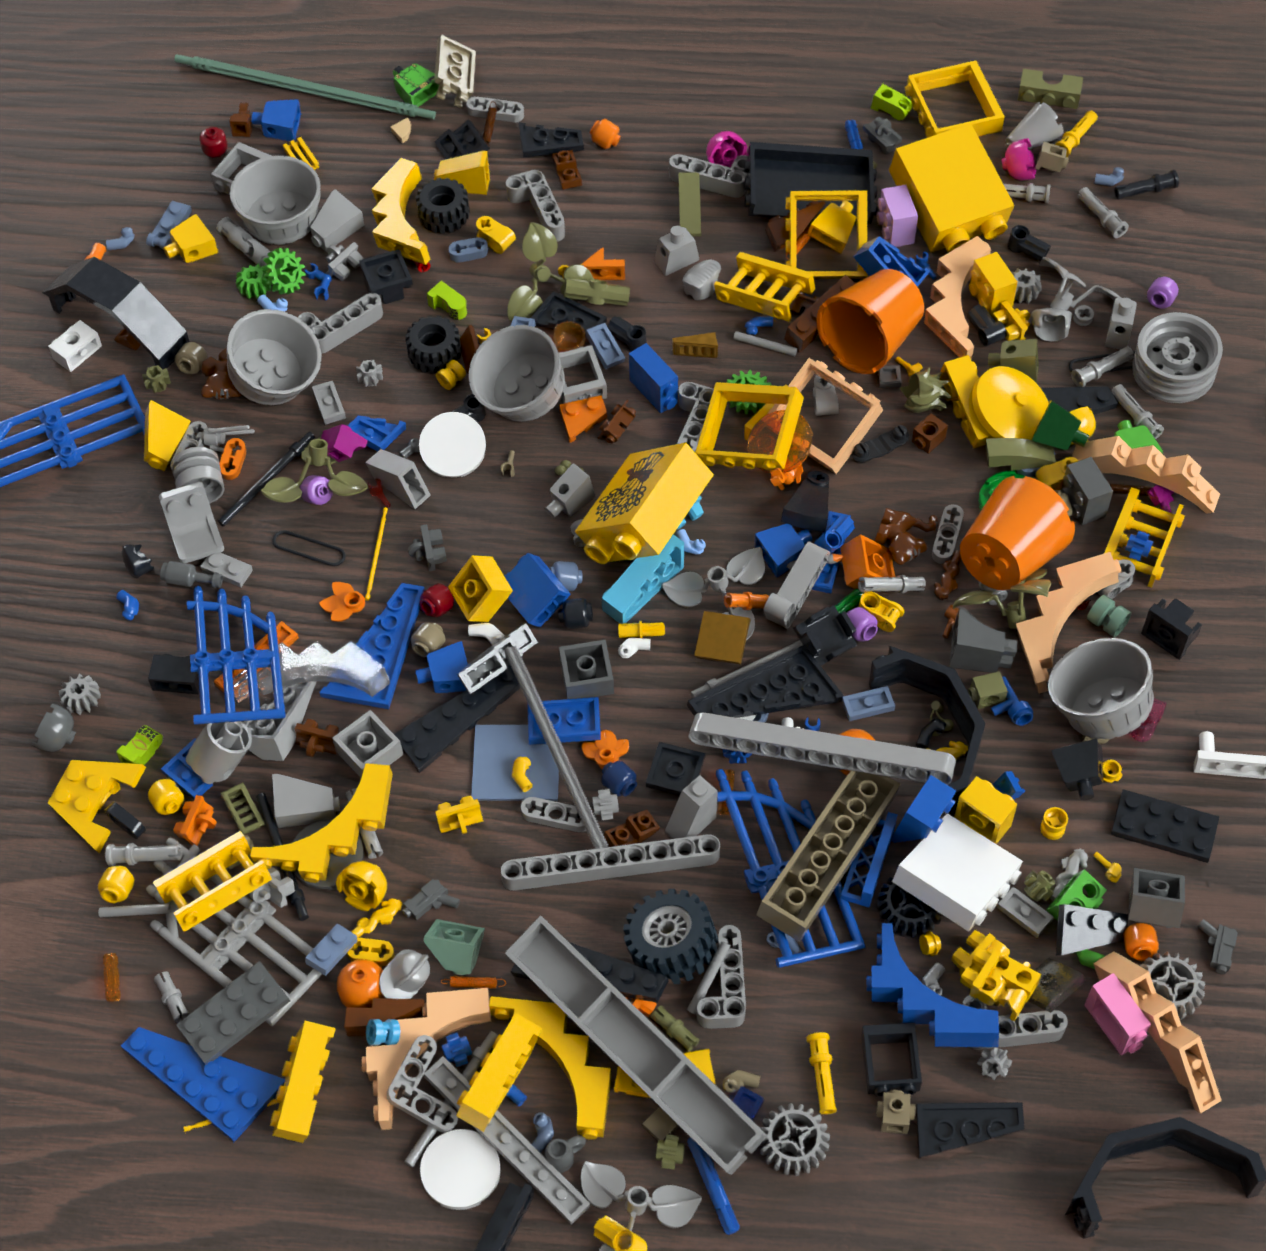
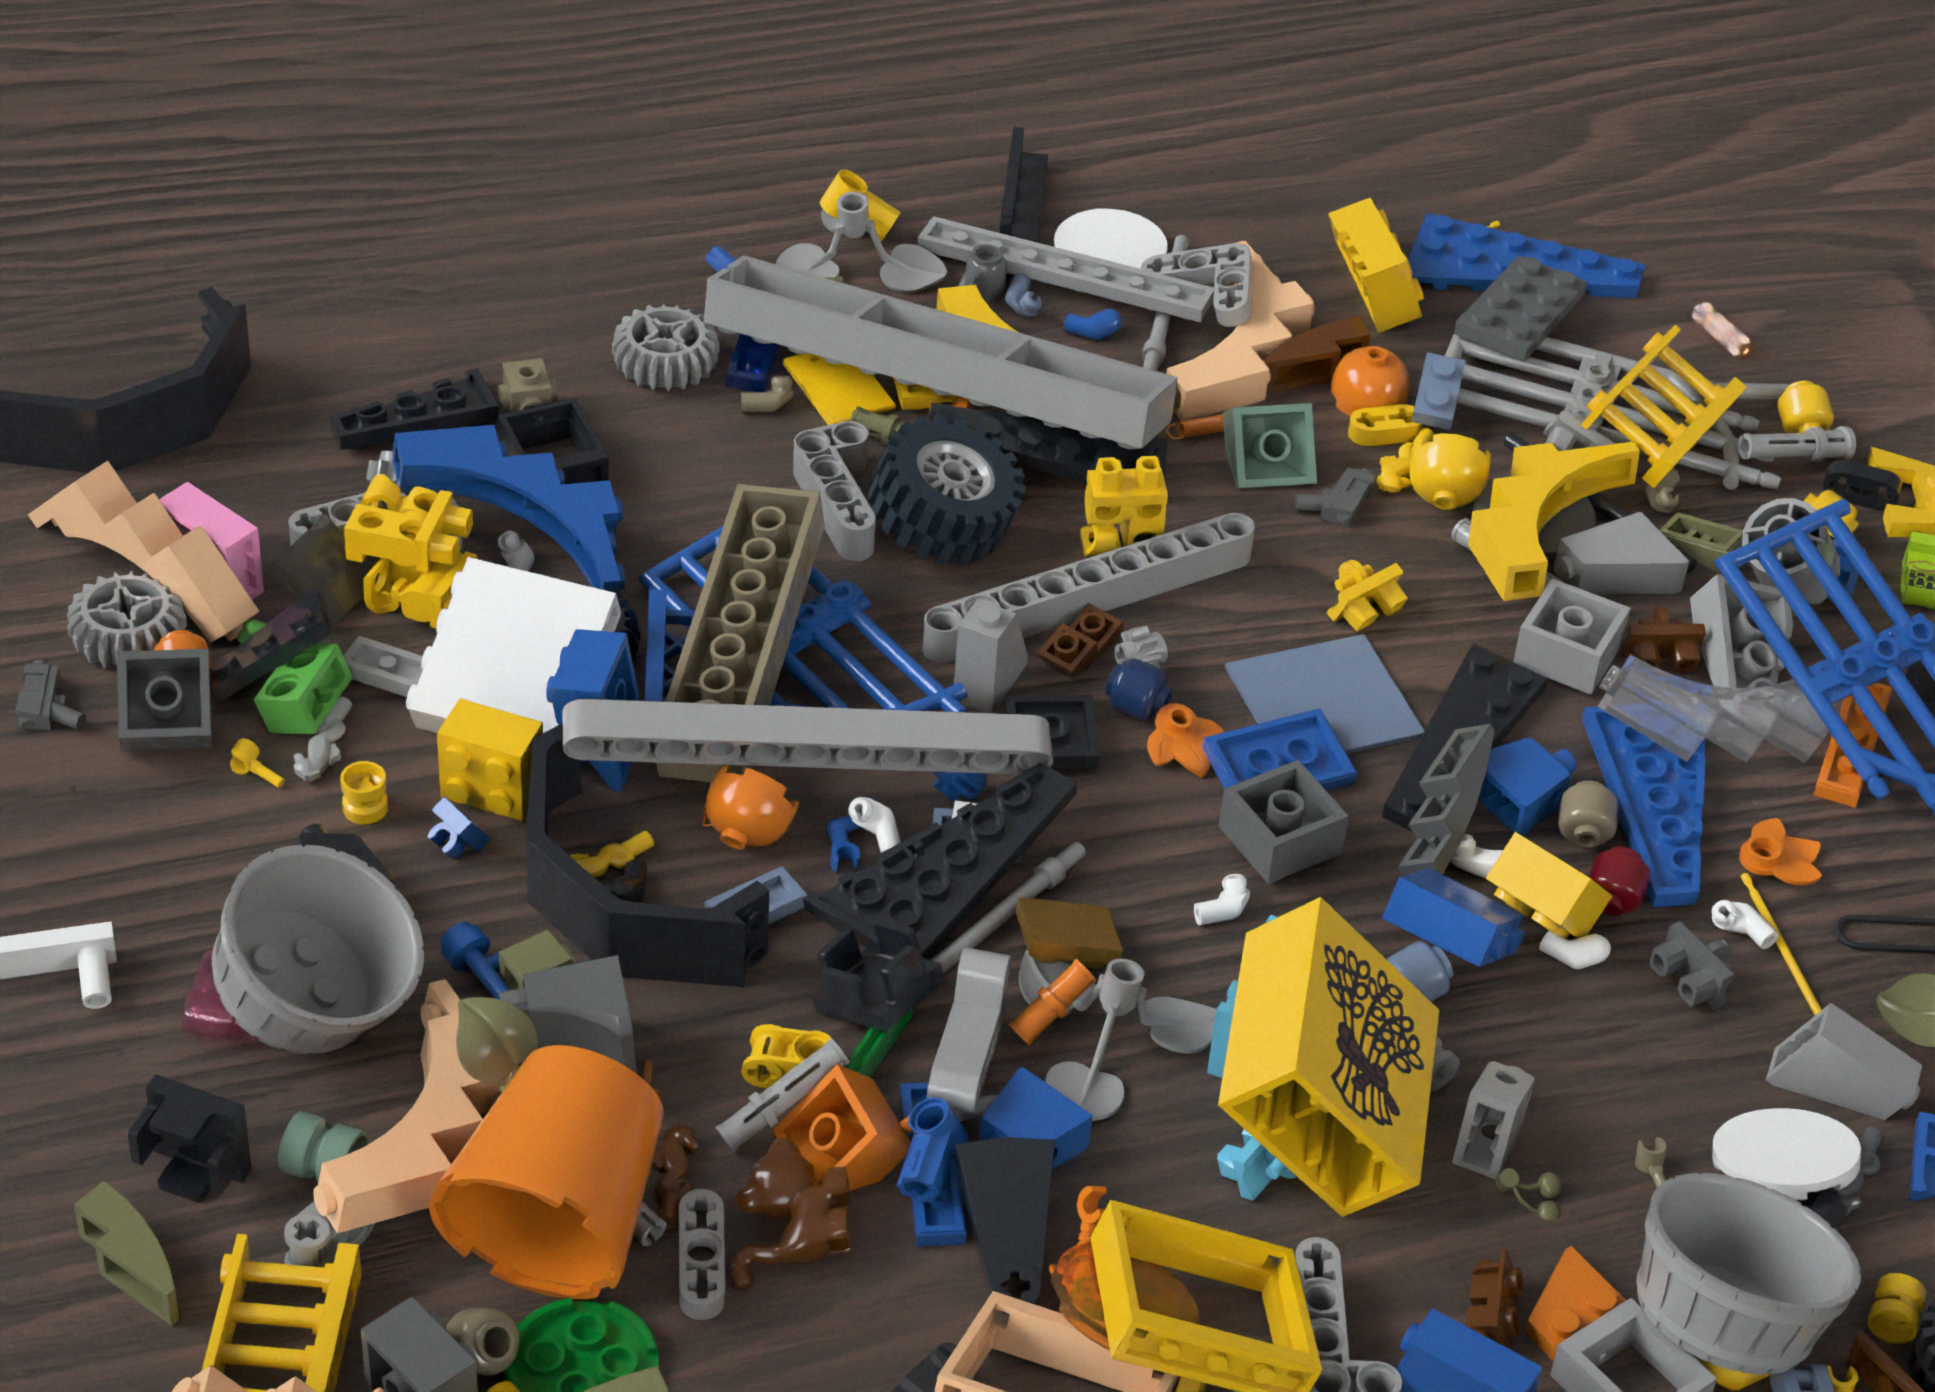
camera: 155 degrees right, 15 degrees down
(171, 996) = (1619, 323): light grey pin -> none
(197, 820) = (1748, 497): orange hips -> none
(382, 1032) = (1303, 312): dark azure wheel -> none
(386, 572) = (1744, 919): none -> white arm
(404, 975) = (1321, 386): light grey piece -> none
(456, 1049) = (1188, 338): blue gear -> none
(498, 1072) = (1113, 291): yellow wedge -> none
(519, 769) = (1307, 668): yellow arm -> none
(536, 816) = (1246, 646): light grey beam -> none
(555, 748) = (1273, 698): light grey axle -> none
(571, 888) = (1125, 498): none -> yellow hips
(576, 613) = (1362, 908): black head -> none
(641, 629) = (1223, 928): yellow axle -> none
(695, 547) = (1203, 1101): light blue arm -> none
(709, 976) = (865, 472): light grey piece -> none
(821, 1061) = (657, 433): yellow pin -> none
(864, 623) = (821, 1013): medium lavender head -> none
(1039, 885) = (371, 696): olive gear -> none
(1139, 545) = (283, 1269): blue gear -> none
(1165, 826) = (158, 846): black plate -> none
(1203, 593) = (127, 1250): none -> olive slope

